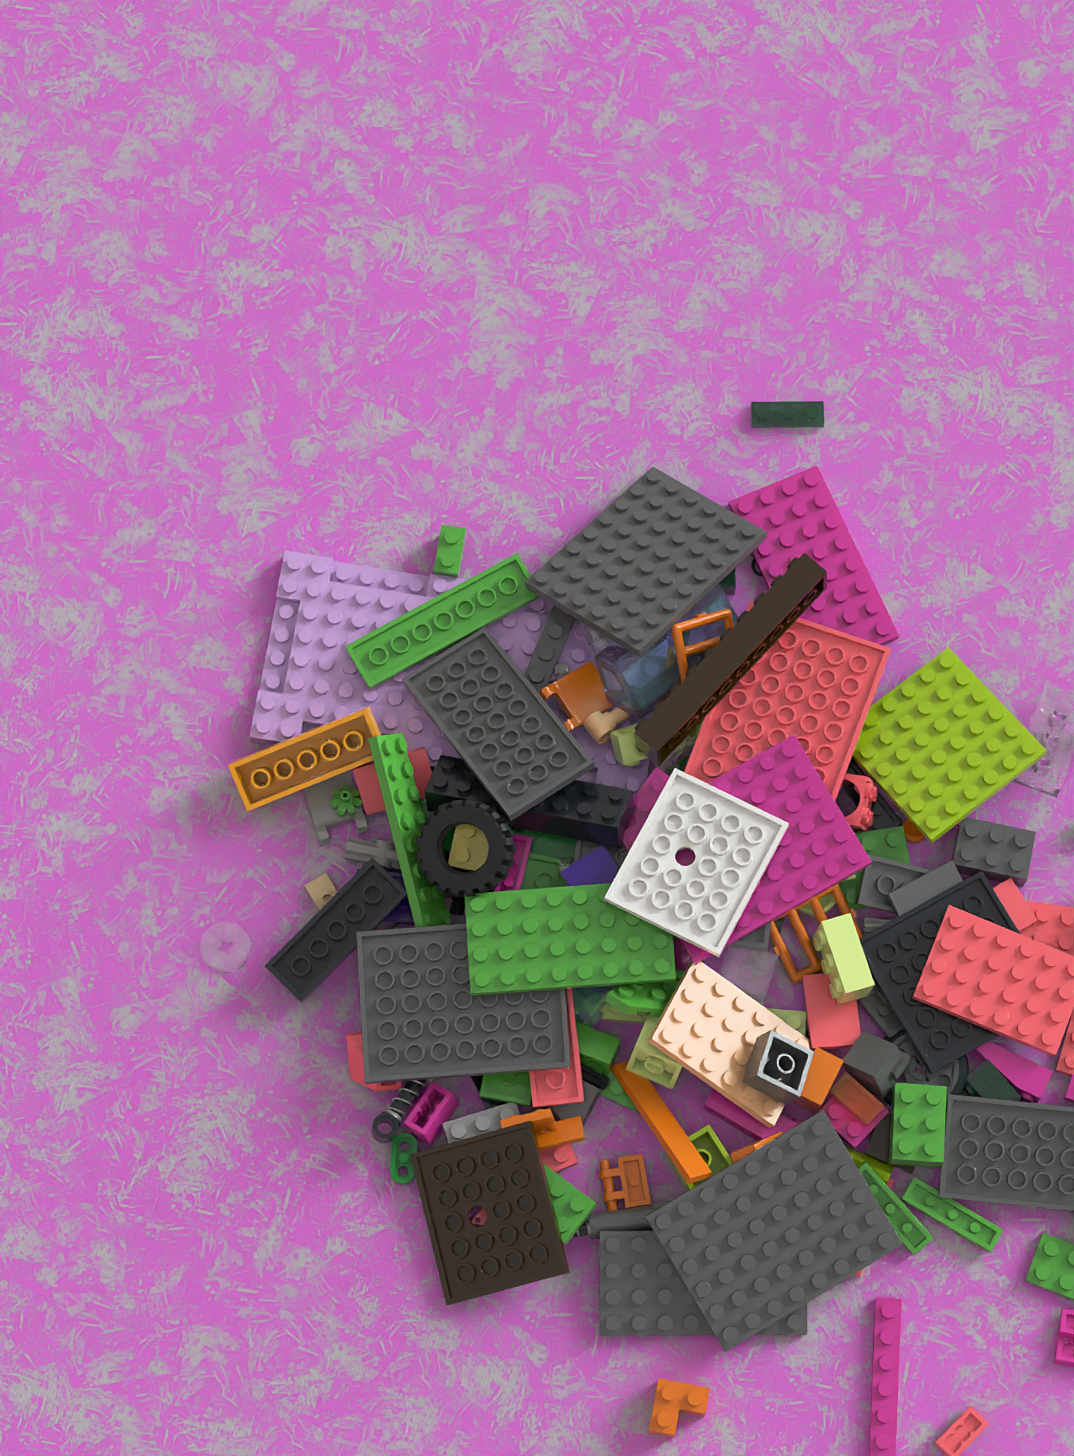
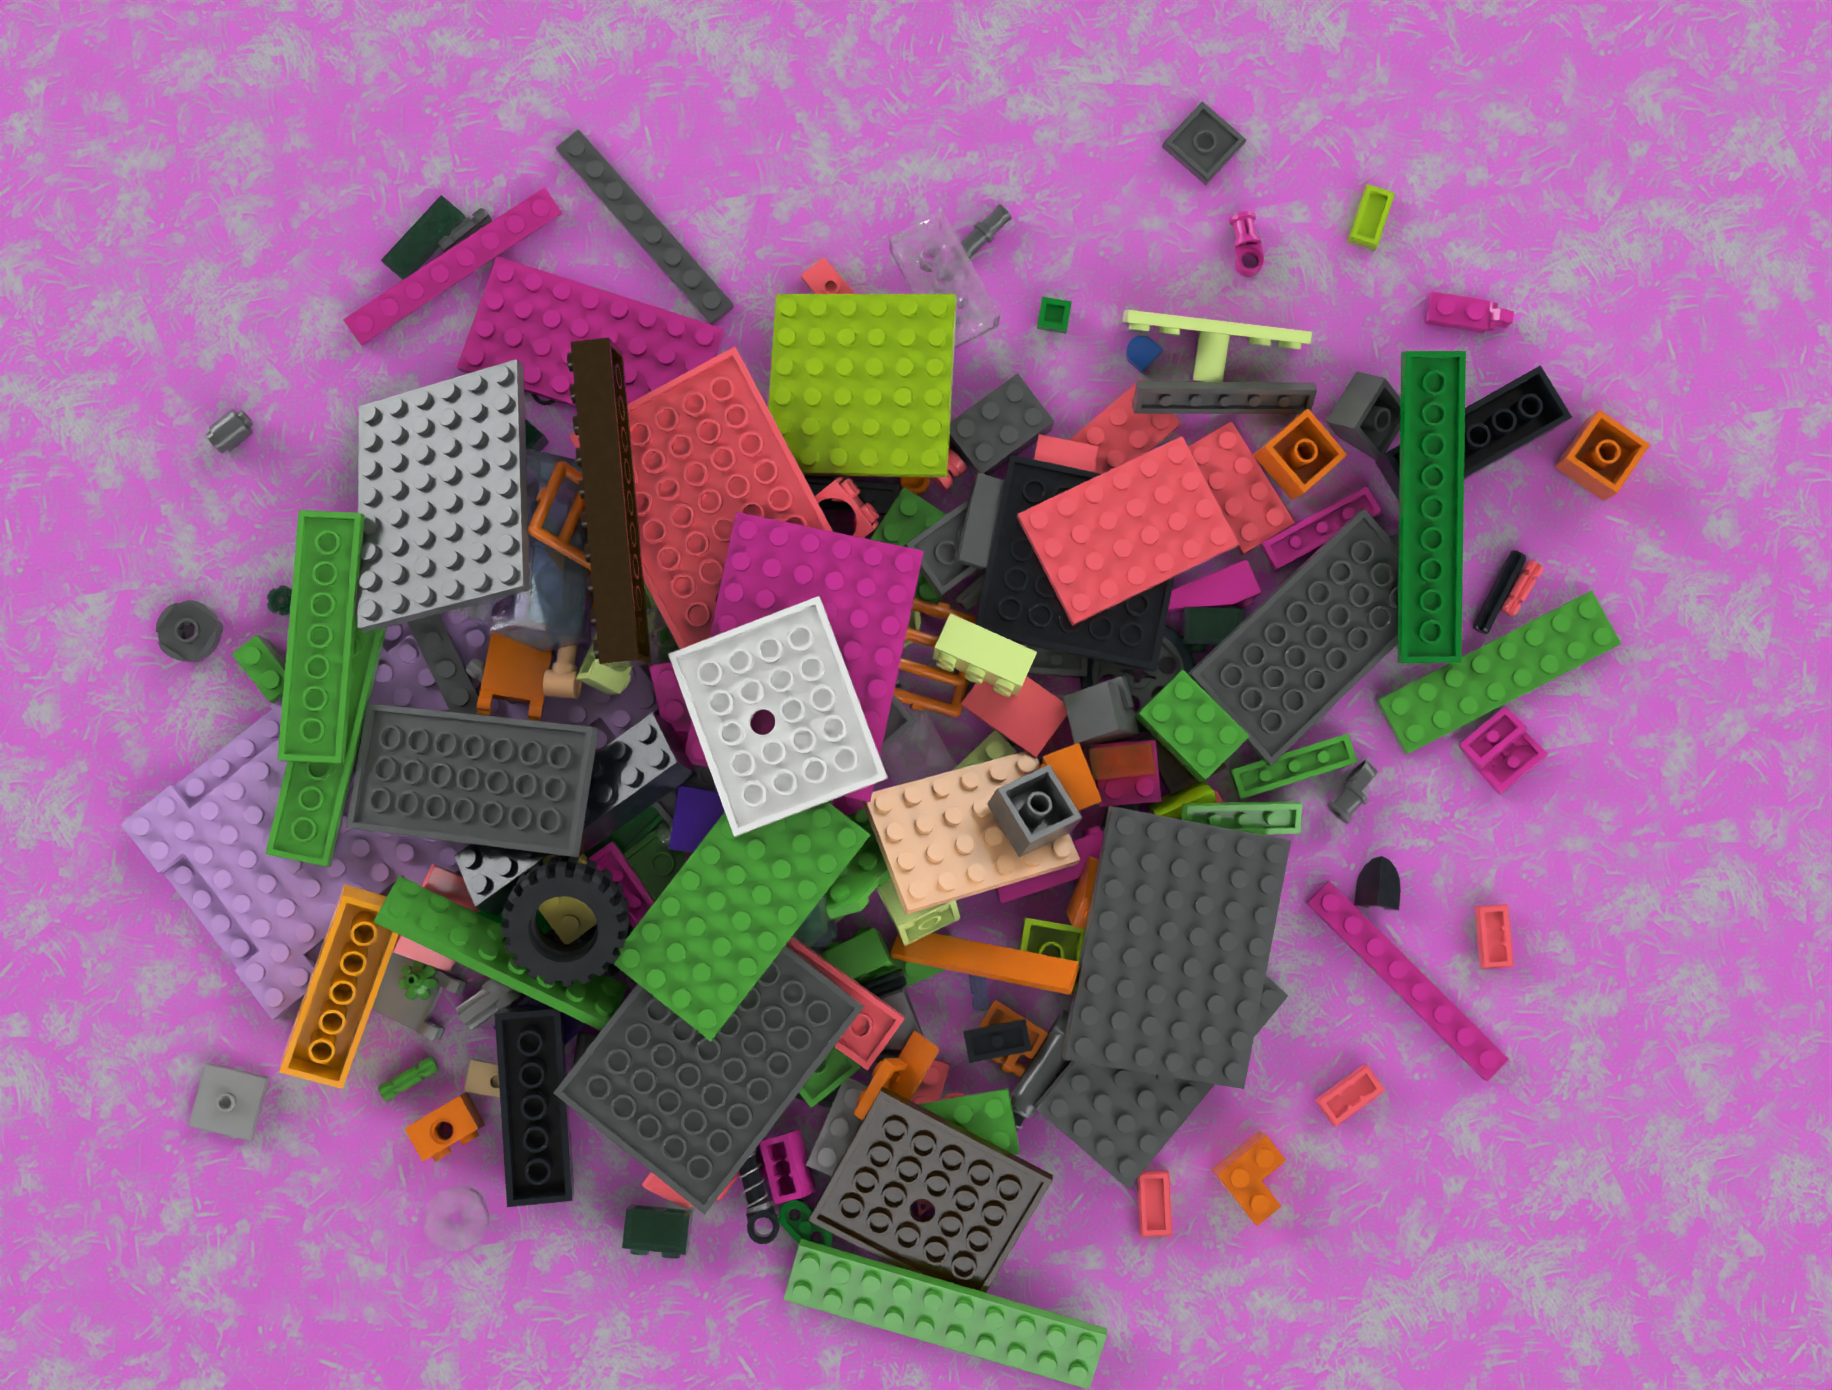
camera: 50 degrees left, 10 degrees up
(177, 755) = (228, 1101): none -> light grey plate
(263, 882) = (426, 1132): none -> orange brick
(282, 846) = (408, 1078): none -> bright green axle
(324, 1071) = (657, 1230): none -> clear green brick
(422, 499) = (170, 632): none -> dark grey plate
(426, 1289) = (945, 1314): none -> bright green plate
(496, 530) = (273, 600): none -> clear green plate
(500, 566) = (321, 637): none -> bright green plate
(569, 407) = (230, 430): none -> dark grey brick
(605, 1362) = (1154, 1203): none -> coral tile
(619, 1173) = (997, 1040): none -> black plate
(639, 1140) = (979, 988): none -> clear light blue axle
(780, 1426) = (1349, 1095): none -> coral plate
(787, 446) = (452, 266): none -> dark pink plate
(814, 434) = (465, 229): none -> dark grey axle
(916, 536) = (645, 227): none -> dark grey plate
(927, 1332) = (1378, 885): none -> black brick
(942, 845) = (956, 468): none -> coral wheel
(967, 1267) = (1353, 796): none -> dark grey connector
(985, 668) = (823, 279): none -> coral plate

